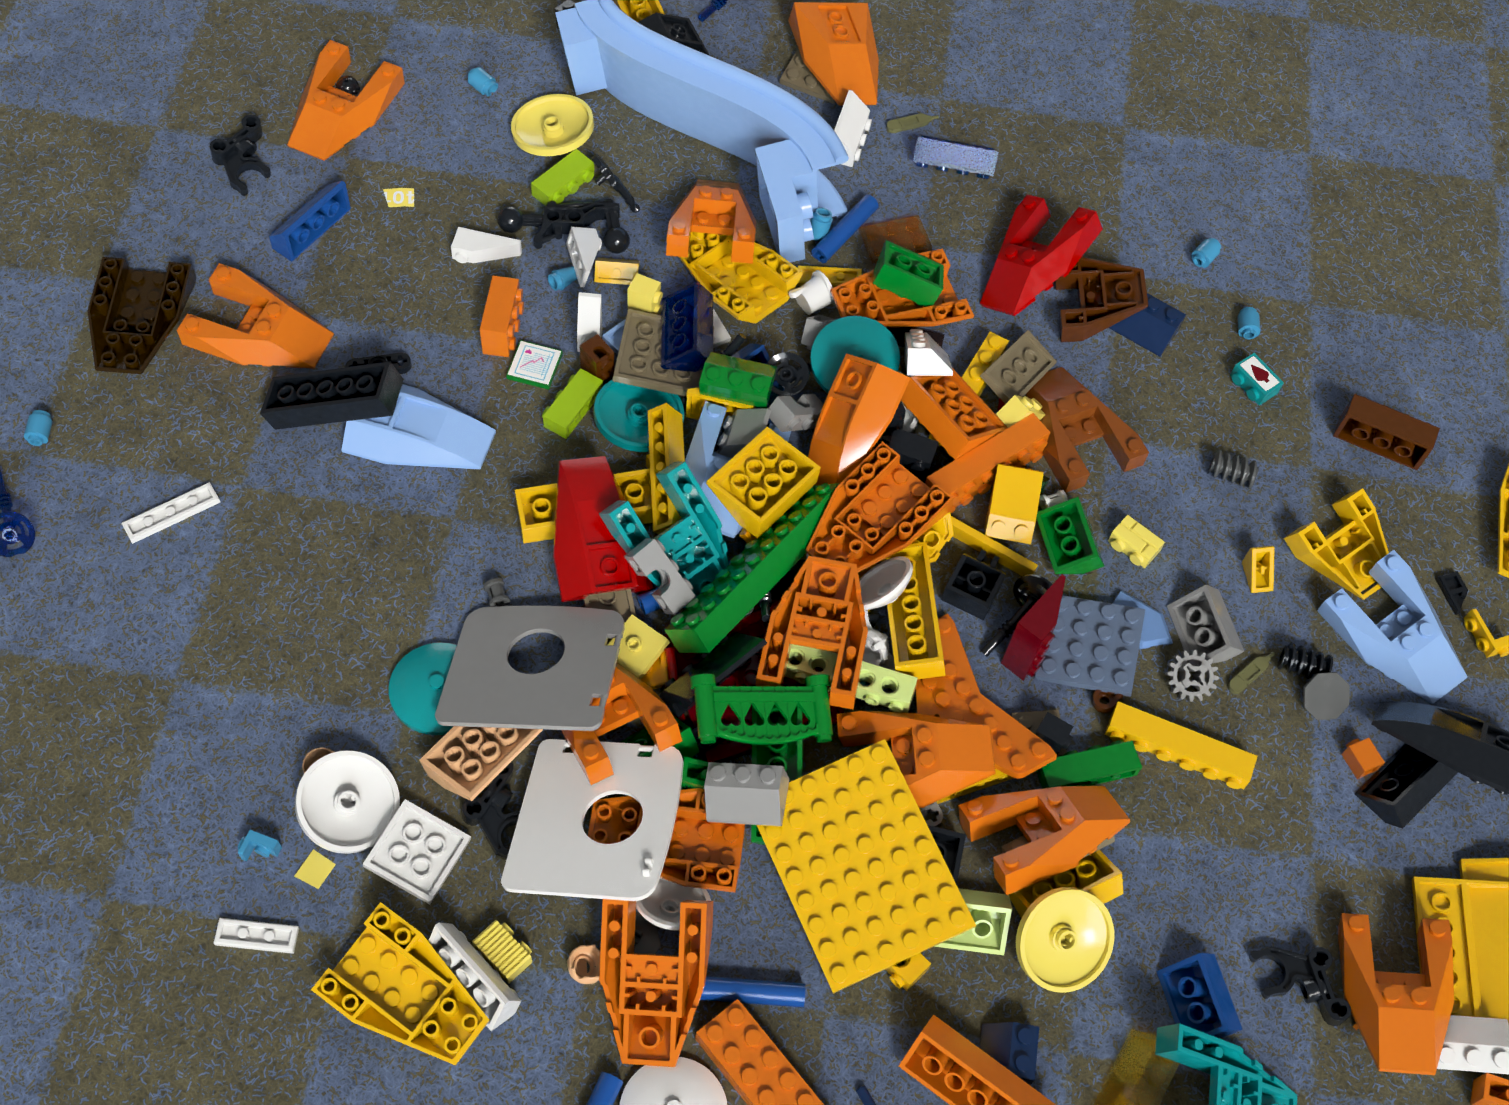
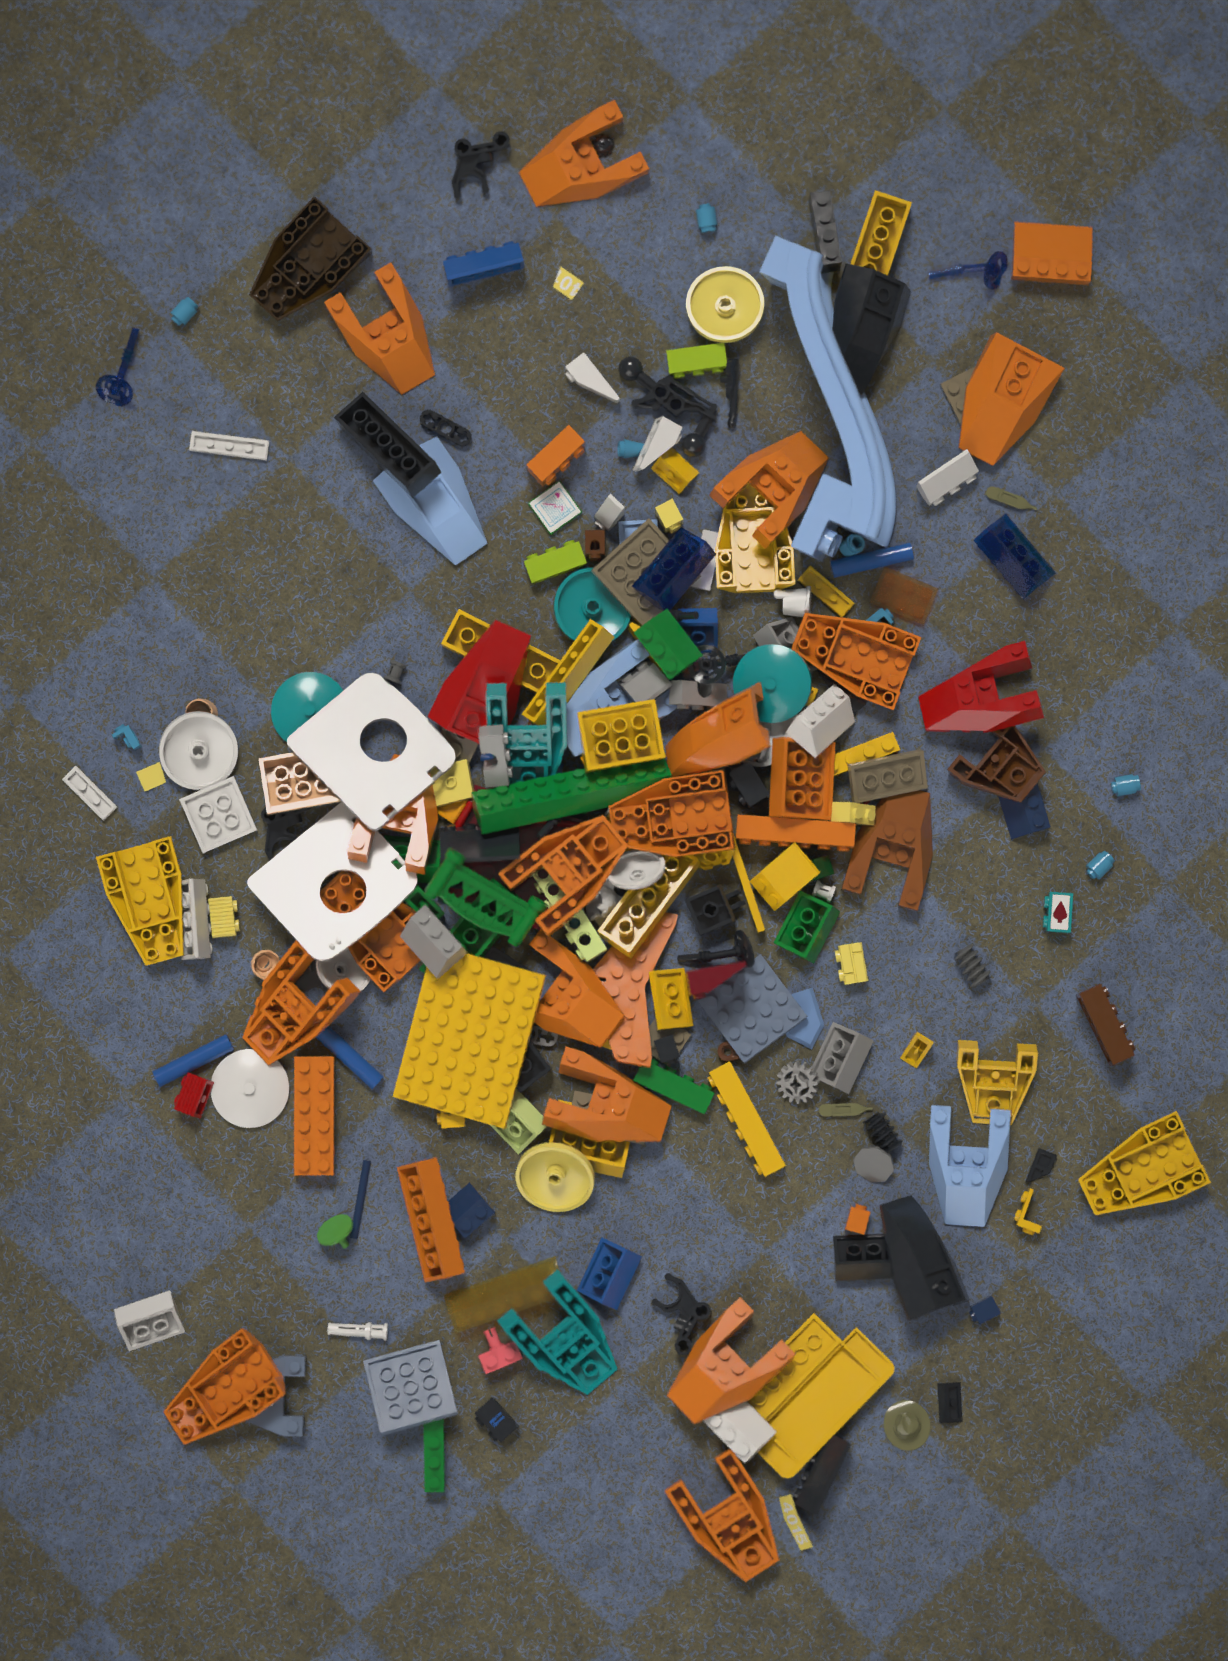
camera: 45 degrees right, 25 degrees up
(908, 274) = (871, 644): green slope -> none
(1012, 688) = (671, 998): none -> yellow plate

